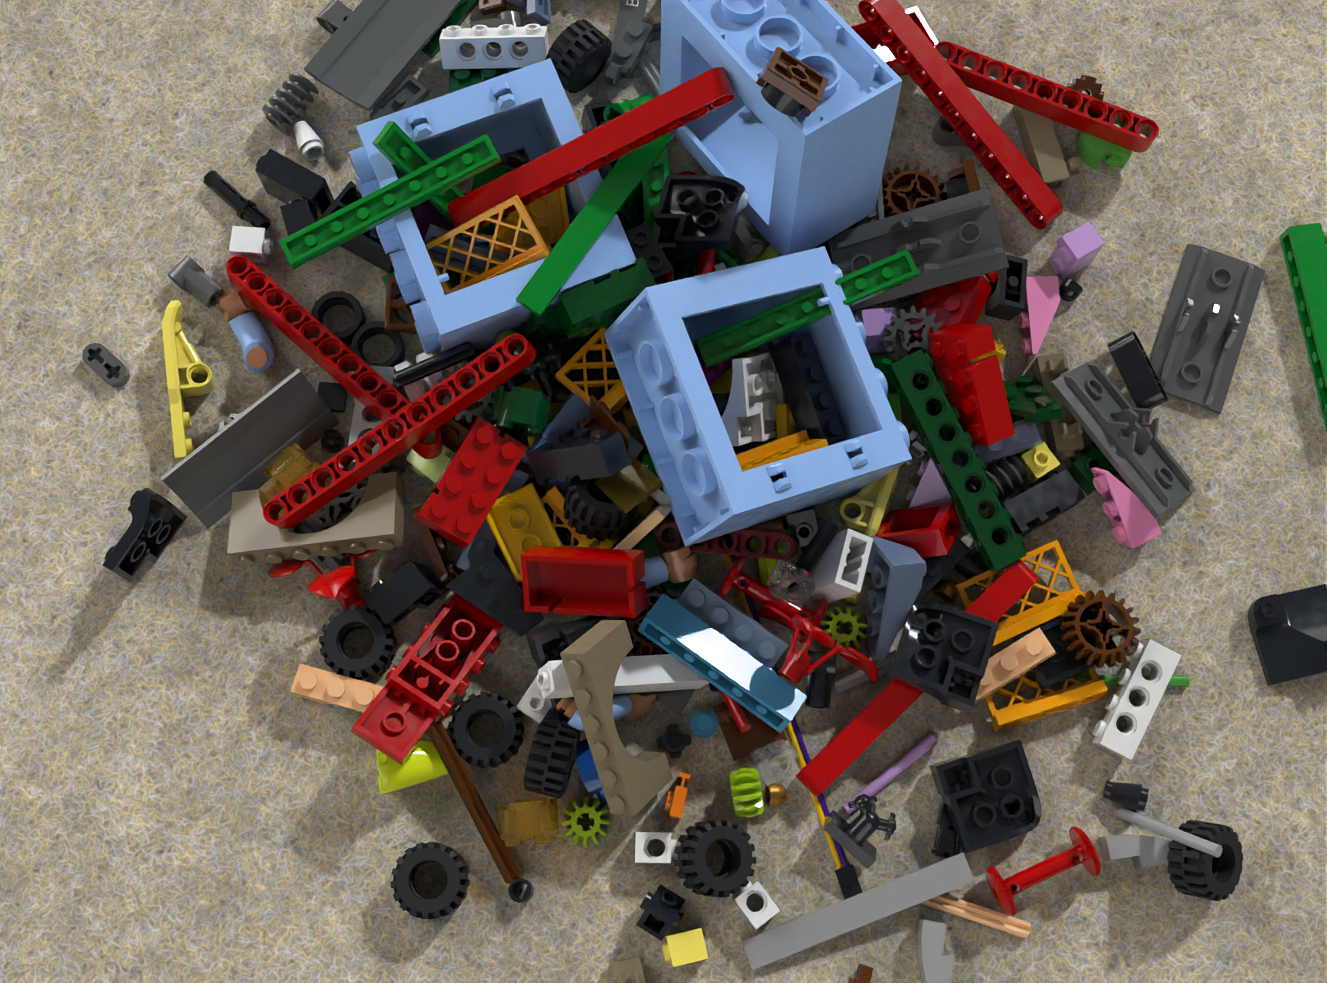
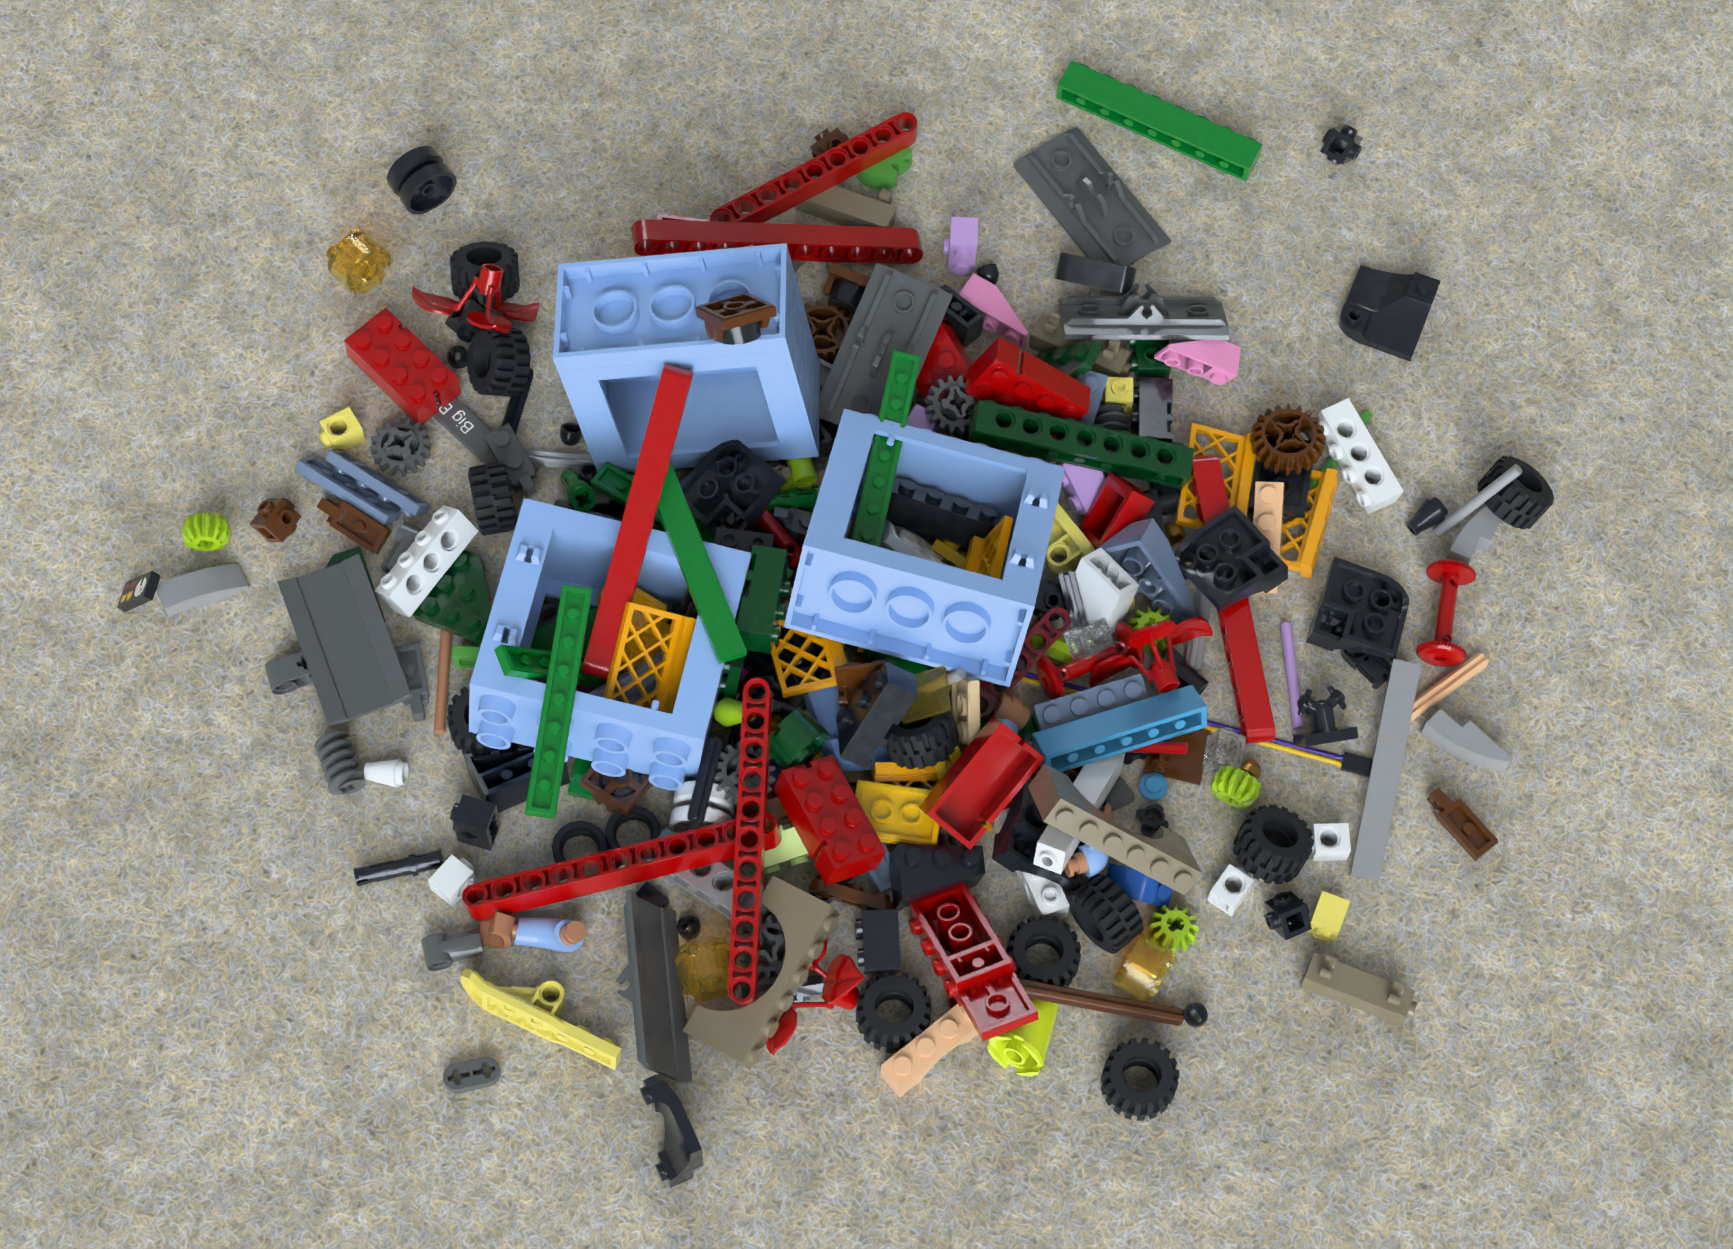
camera: 55 degrees left, 10 degrees down
(291, 181) = (426, 804): black brick -> none
(676, 799) = (1206, 839): orange plate -> none

